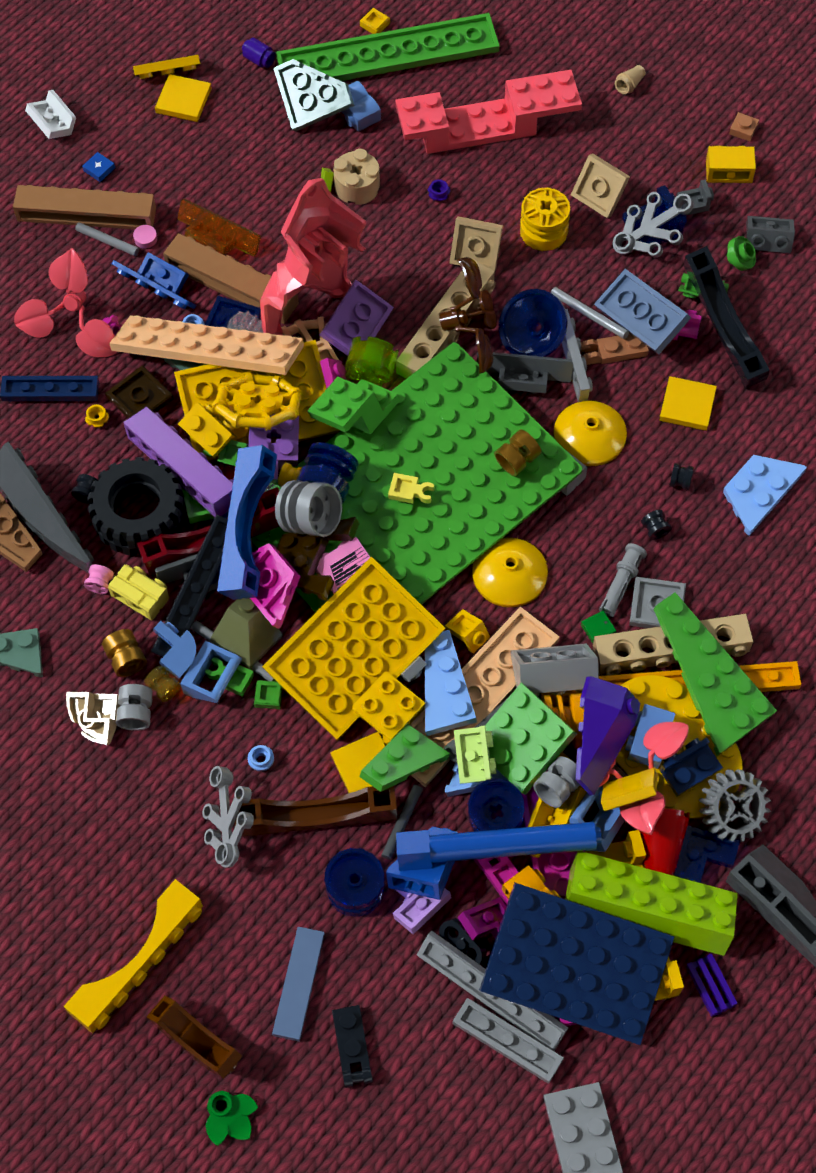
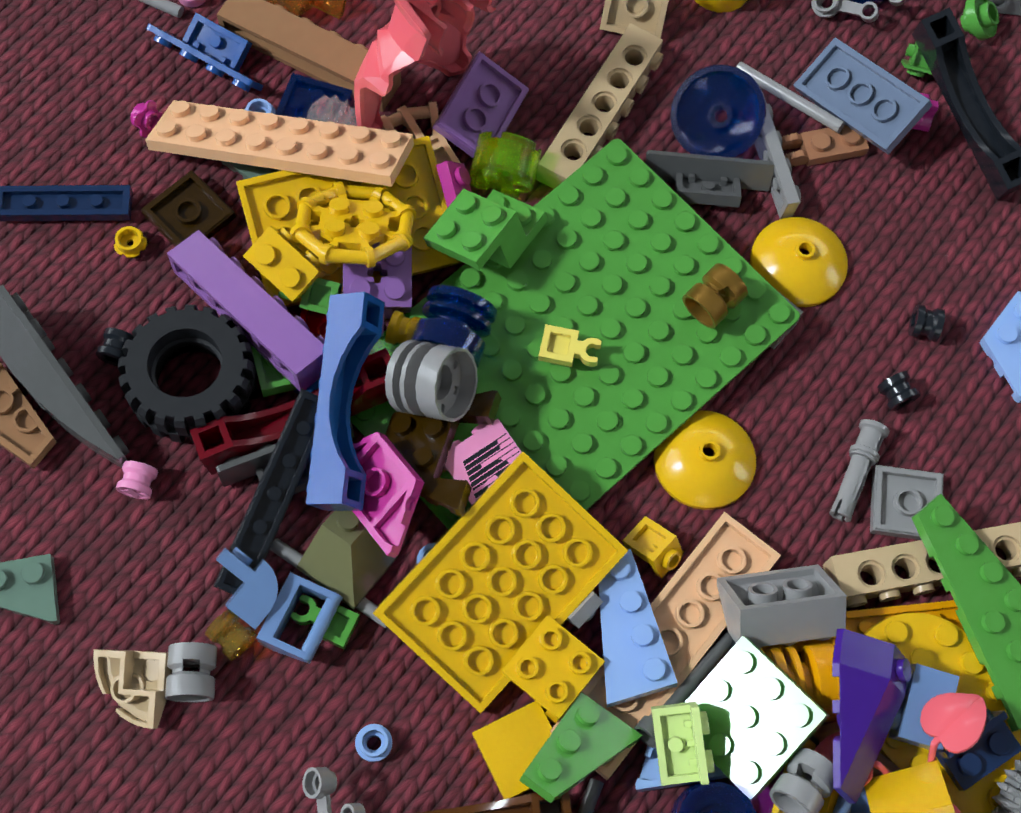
camera: 10 degrees left, 5 degrees up
(70, 274) = (86, 43): coral plant -> none
(124, 653) = (176, 594): pearl gold wheel -> none
(139, 591) = (194, 497): light yellow brick -> none
(268, 695) = (380, 646): bright green tile -> none
(458, 318) = (619, 106): reddish brown plant -> none
(597, 625) = (830, 538): green tile -> none
(688, 403) = (925, 220): yellow tile -> none

